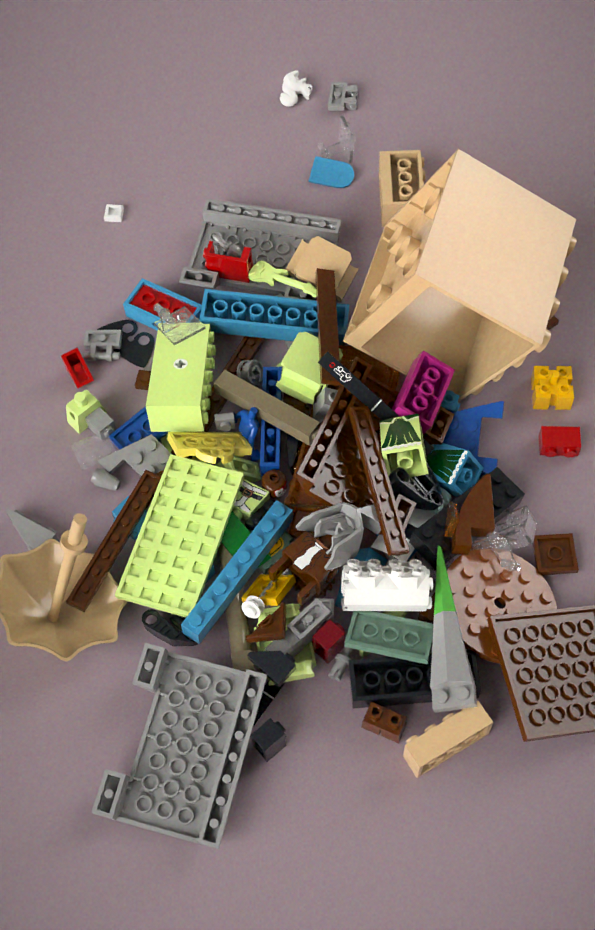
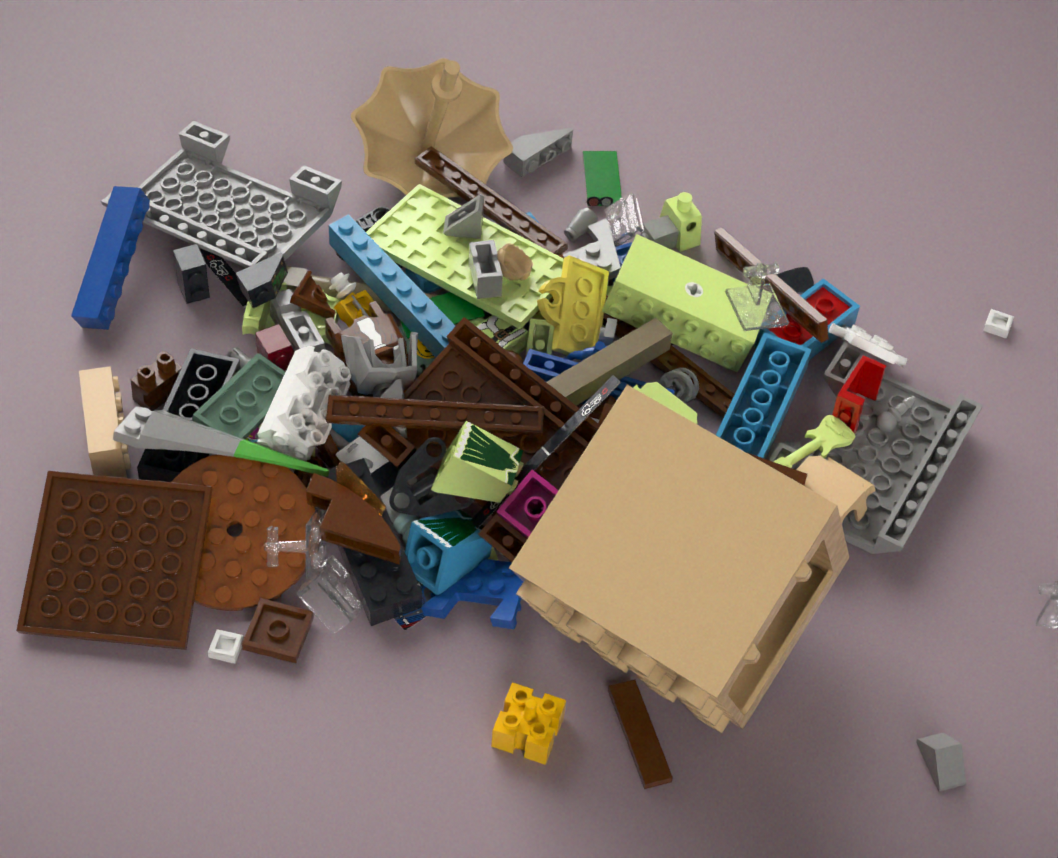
camera: 100 degrees right, 10 degrees down
(44, 483) = (601, 177): none -> green piece
(77, 367) = (750, 224): red slope -> none
(102, 340) = (786, 256): light grey plate -> none
(131, 343) = (789, 300): none -> reddish brown tile
(154, 538) = (466, 220): none -> light grey slope
(172, 270) = (877, 345): none -> white plate
(192, 488) = (514, 262): none -> tan hair
(210, 502) = (485, 269): none -> light grey brick
(280, 807) = (111, 258): none -> blue brick
(331, 173) = (1015, 585): dark azure window -> none
(399, 180) = (953, 651): tan brick -> none
(559, 441) = (439, 700): red brick -> none
(579, 584) = (225, 646): none -> white tile

